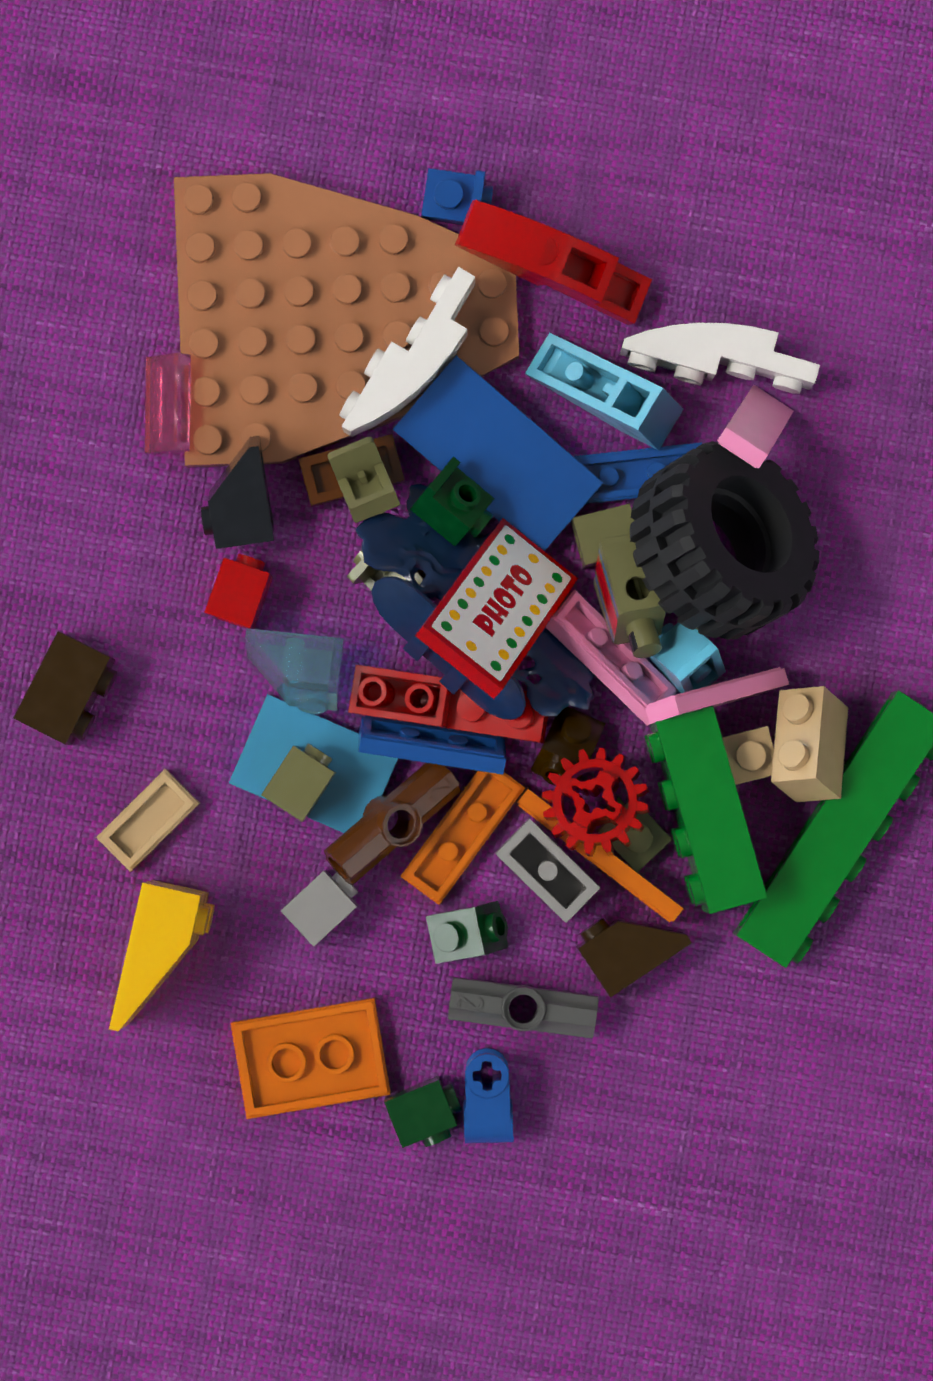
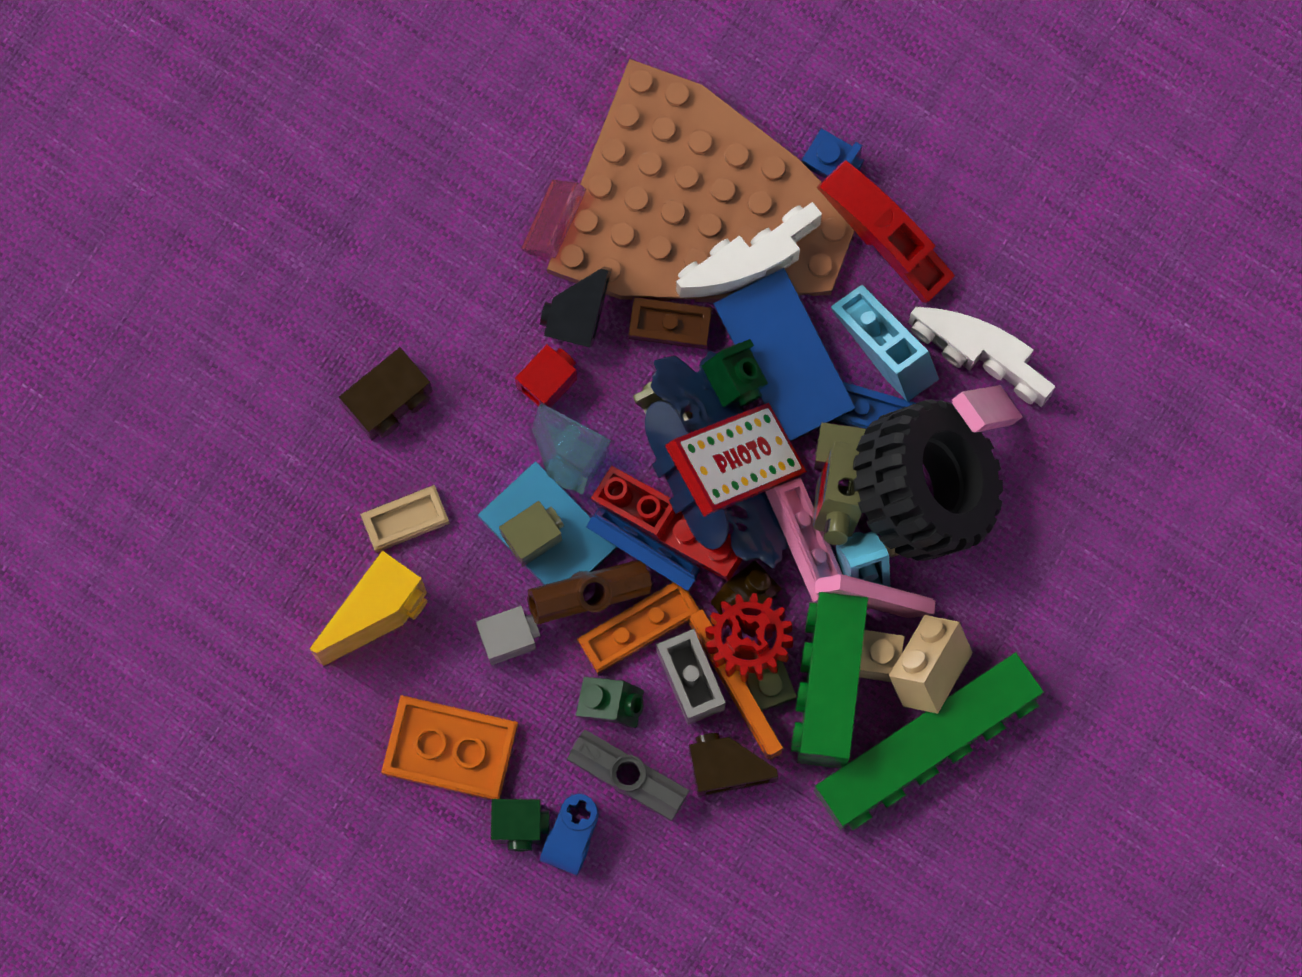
camera: 25 degrees right, 10 degrees down
(363, 479) = (676, 327): olive bracket -> none

